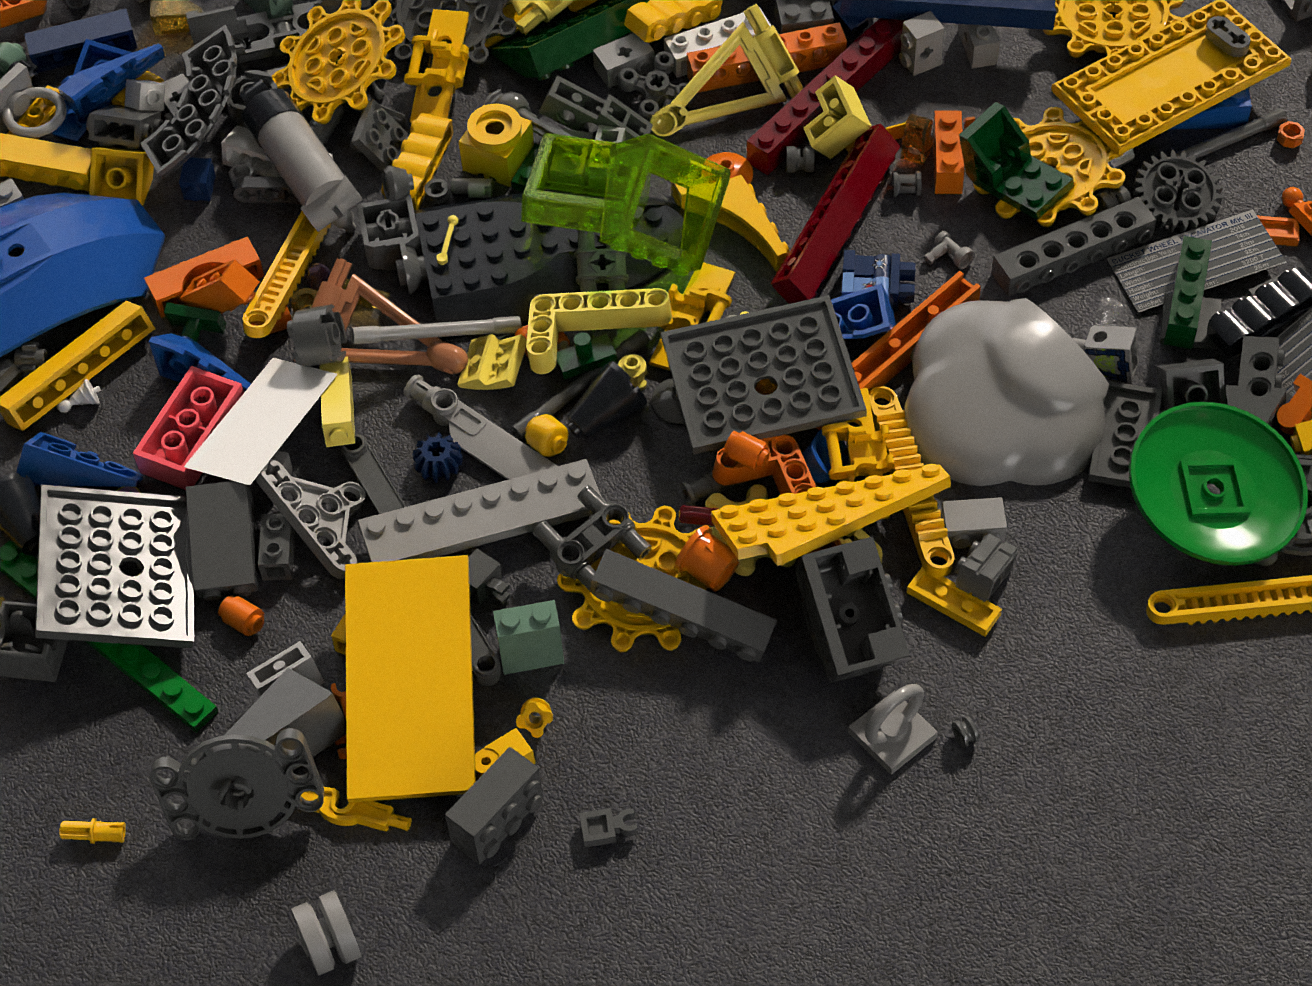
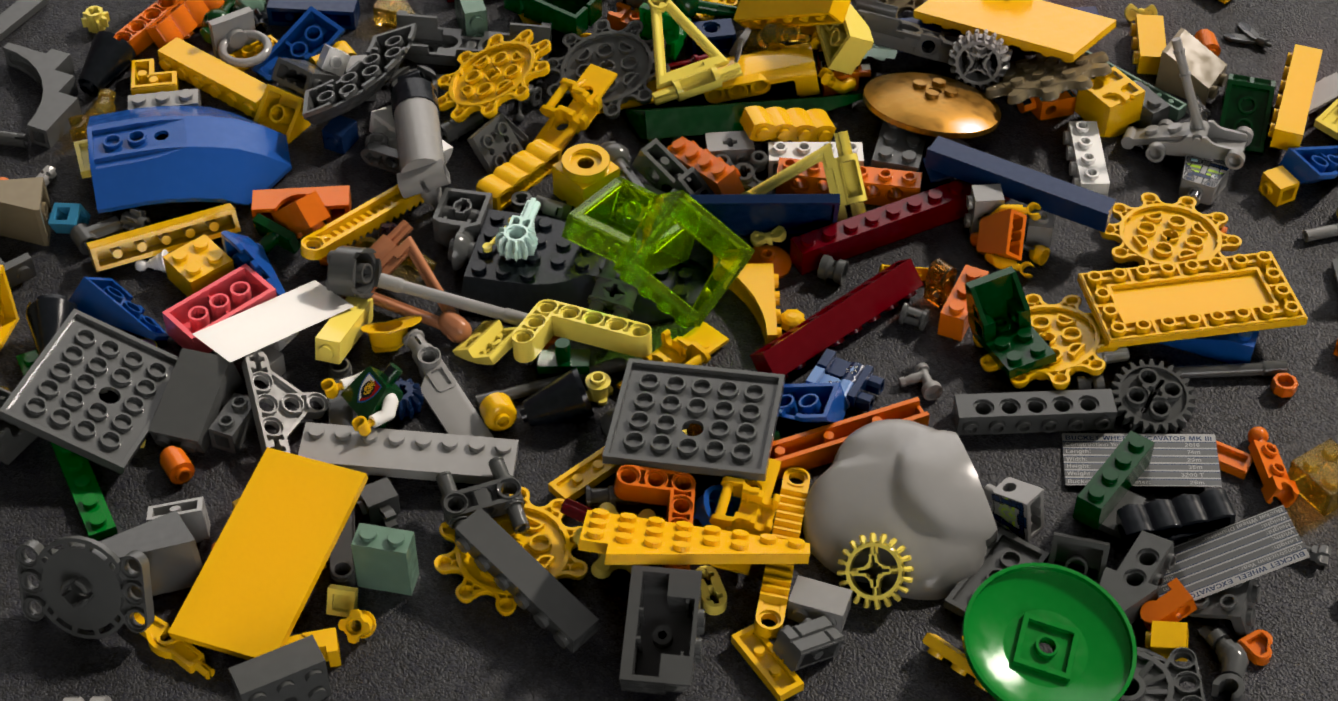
camera: 20 degrees right, 10 degrees down
(98, 84) = (308, 40): blue wedge -> none
(135, 387) = (197, 265): none -> yellow brick
(386, 387) = (389, 335): none -> yellow piece
(396, 182) = (485, 180): dark grey cone -> none
(412, 466) = (370, 395): none -> torso
(471, 237) = (519, 236): none -> light aqua gear
(502, 696) = (341, 600): none -> light yellow tile
(641, 96) = (715, 172): none -> orange brick
(670, 472) = (587, 472): none -> yellow plate
(707, 559) = (560, 546): orange piece -> none
(721, 118) = (765, 212): none -> dark blue tile
(724, 140) = (776, 235): none -> light yellow piece
(747, 450) = (644, 471): orange brick -> none
(788, 229) = (791, 318): none -> yellow tile
(840, 121) = (878, 246): light yellow brick -> none
(954, 66) = (1003, 234): none -> orange torso
(990, 72) = (1038, 253): none -> yellow hinge
(1027, 465) = (875, 584): none -> light yellow gear
(1109, 309) = (1038, 473): clear bar -> none
(1135, 531) = (942, 649): none -> yellow tile
(1227, 36) = (1259, 287): dark grey beam -> none

